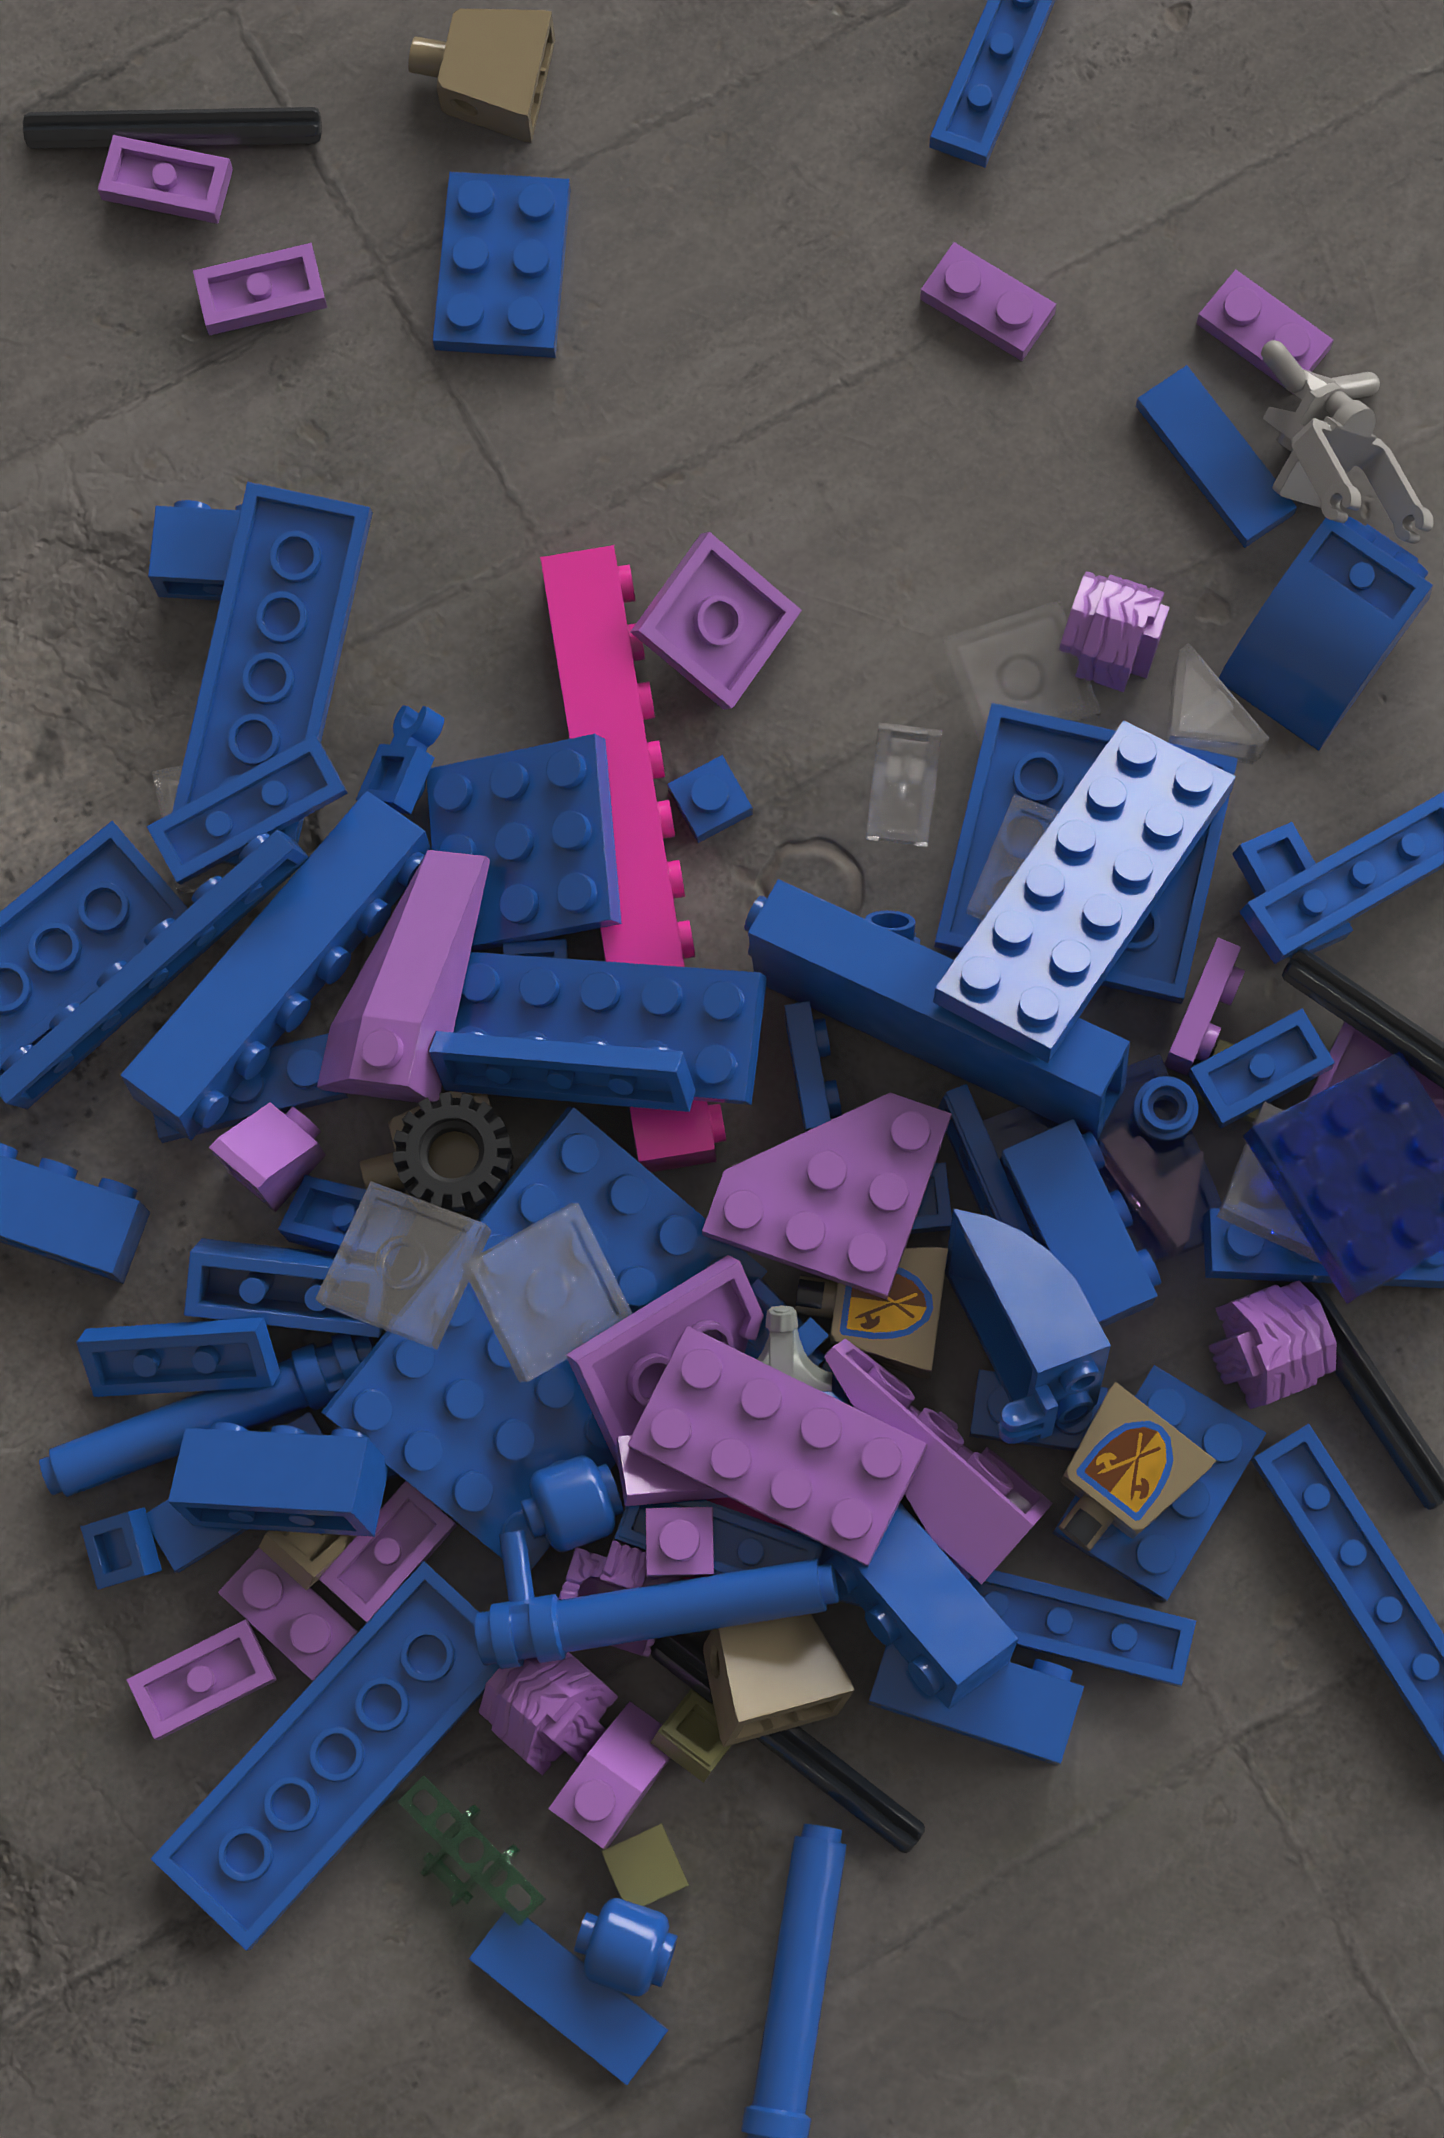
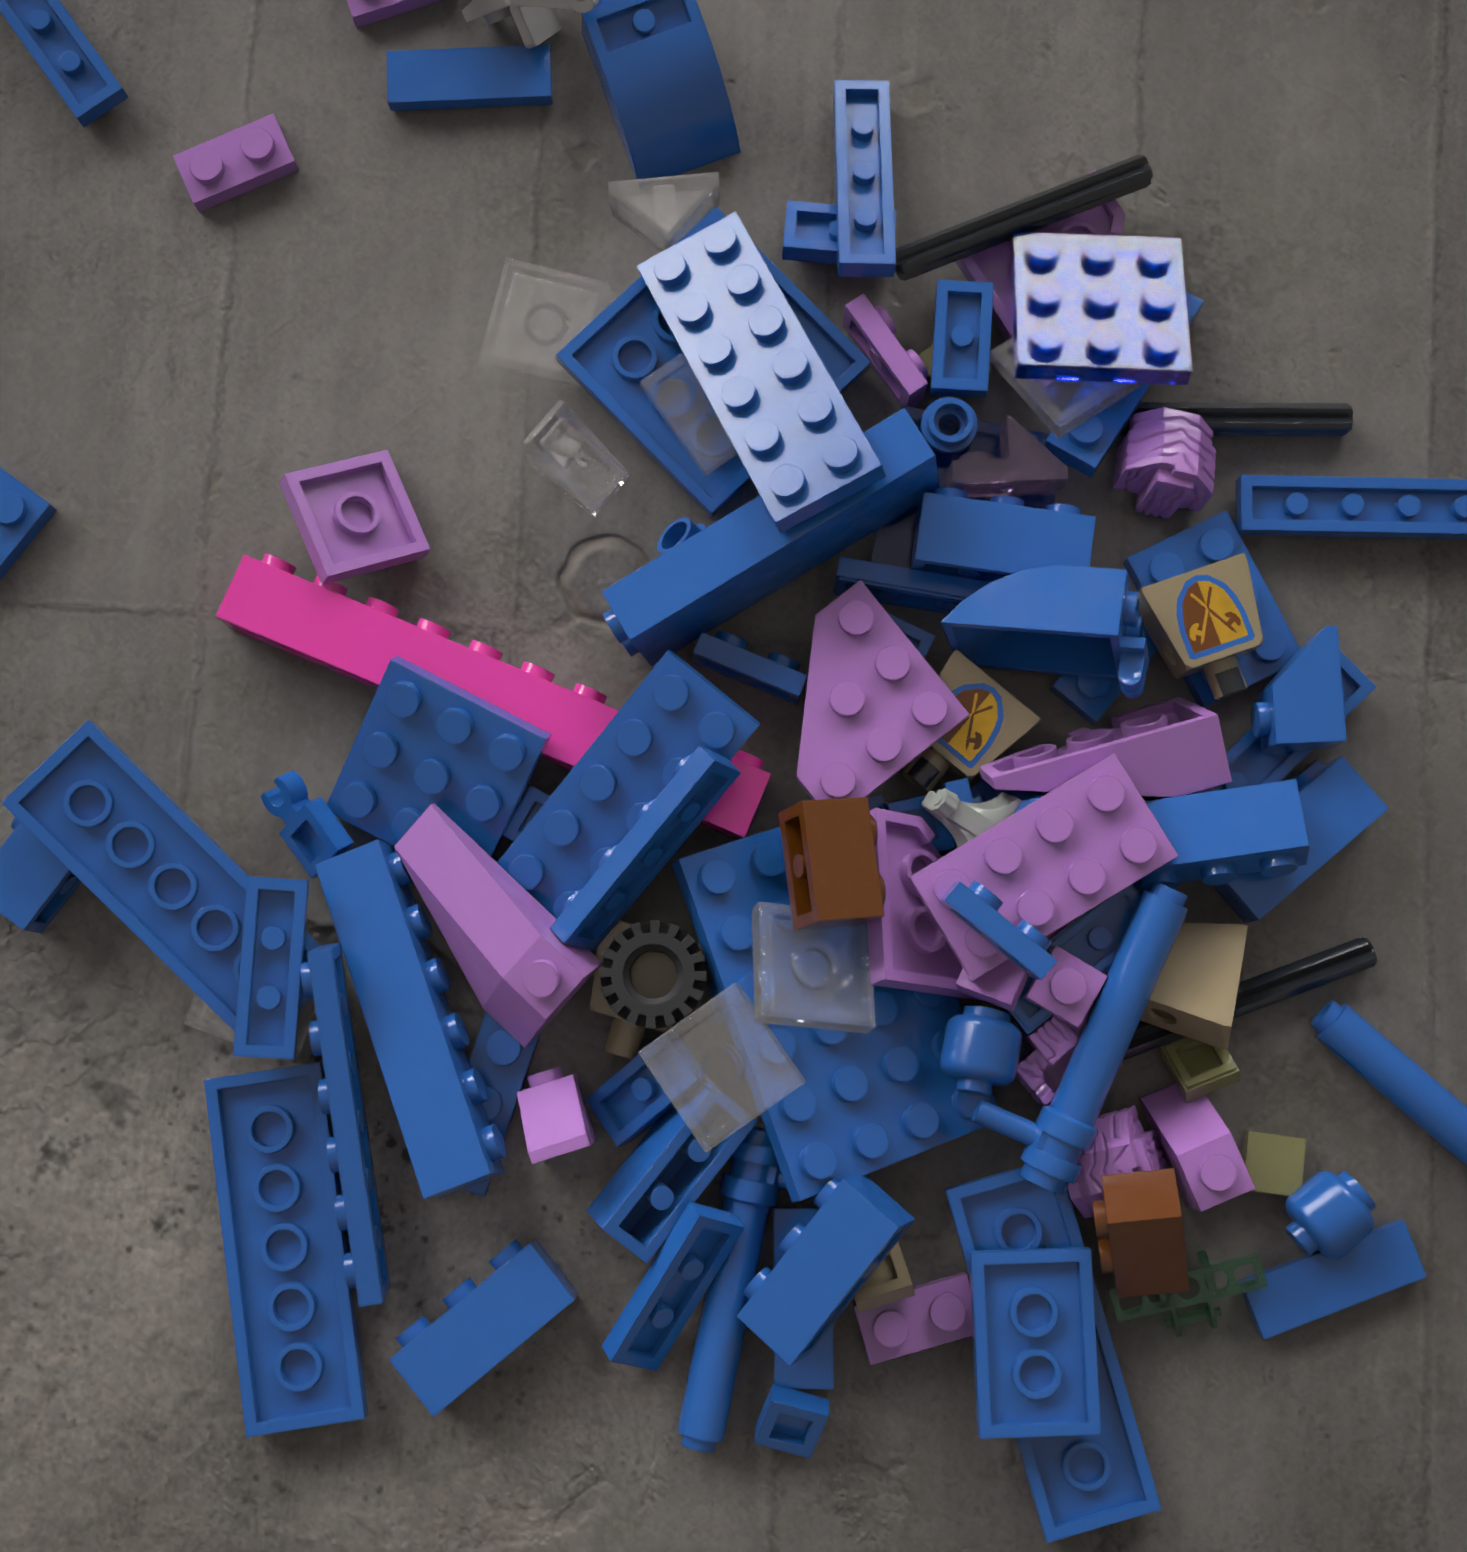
camera: 65 degrees left, 5 degrees up
(201, 1679) = (930, 1419): medium lavender plate -> none
(328, 1725) = (1034, 1342): none -> blue plate
(377, 1566) = (932, 1239): medium lavender plate -> none
(493, 1765) = (1144, 1233): none -> reddish brown brick
(655, 1246) = (832, 863): none -> reddish brown brick
(688, 1399) = (1020, 944): none -> blue plate
(710, 799) = (488, 610): blue plate -> none
(1112, 1610) = (1304, 700): none -> blue slope
(1114, 629) = (559, 228): medium lavender hair -> none

